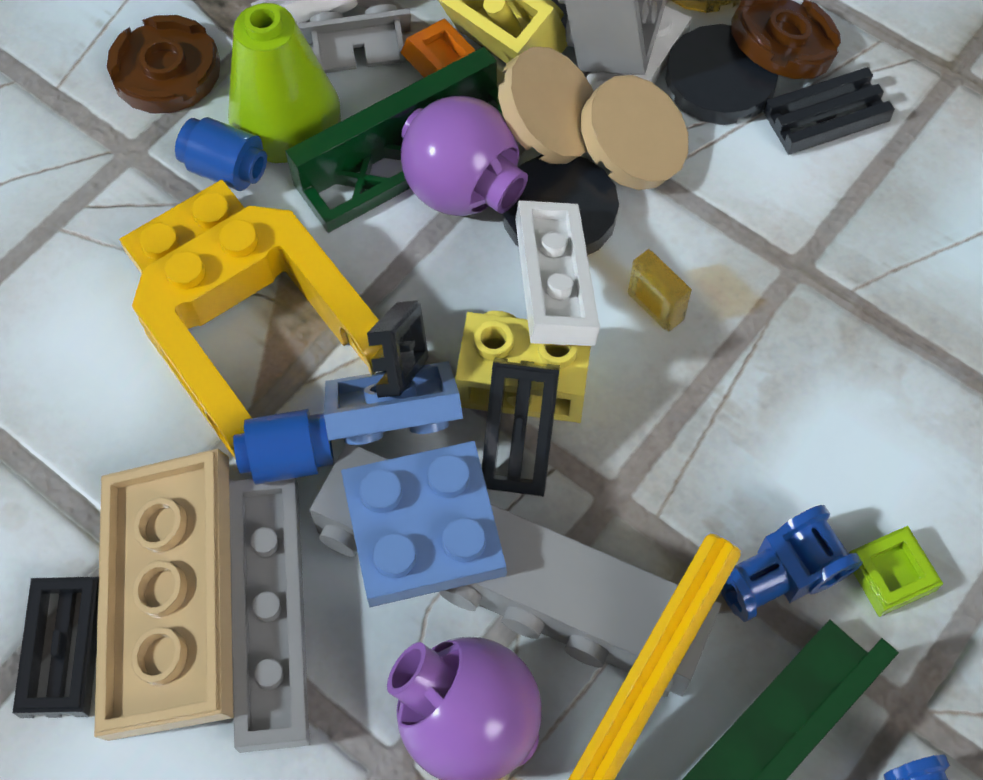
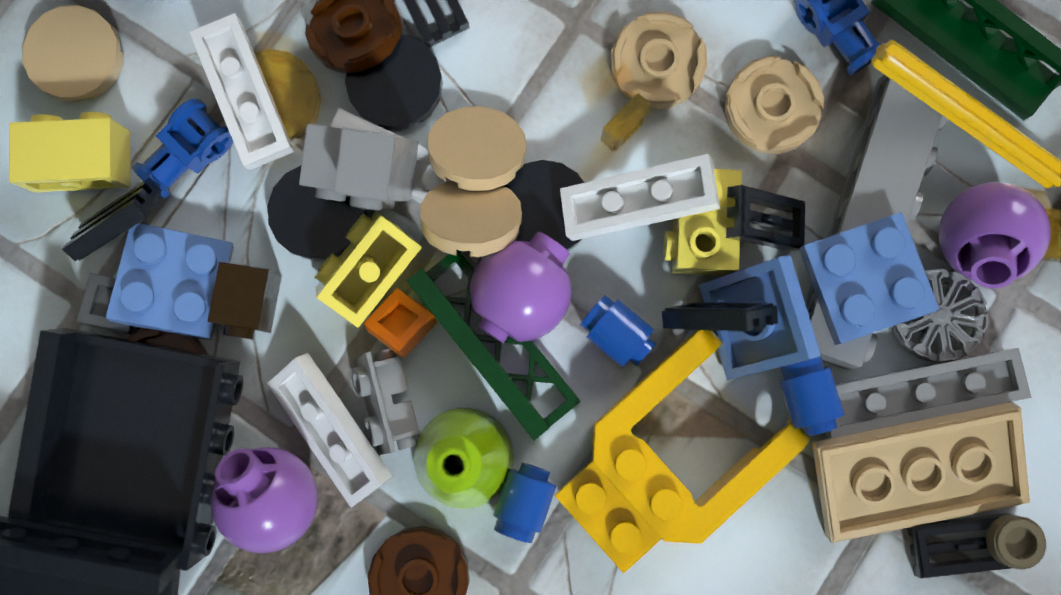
camera: 90 degrees left, 20 degrees up
(46, 697) = (1016, 541): none -> dark tan tile
(366, 651) = (946, 320): none -> light grey wheel
(400, 262) = (618, 331): none -> blue brick
(678, 477) = (773, 105): none -> tan tile
(742, 347) = (658, 59): none -> tan tile

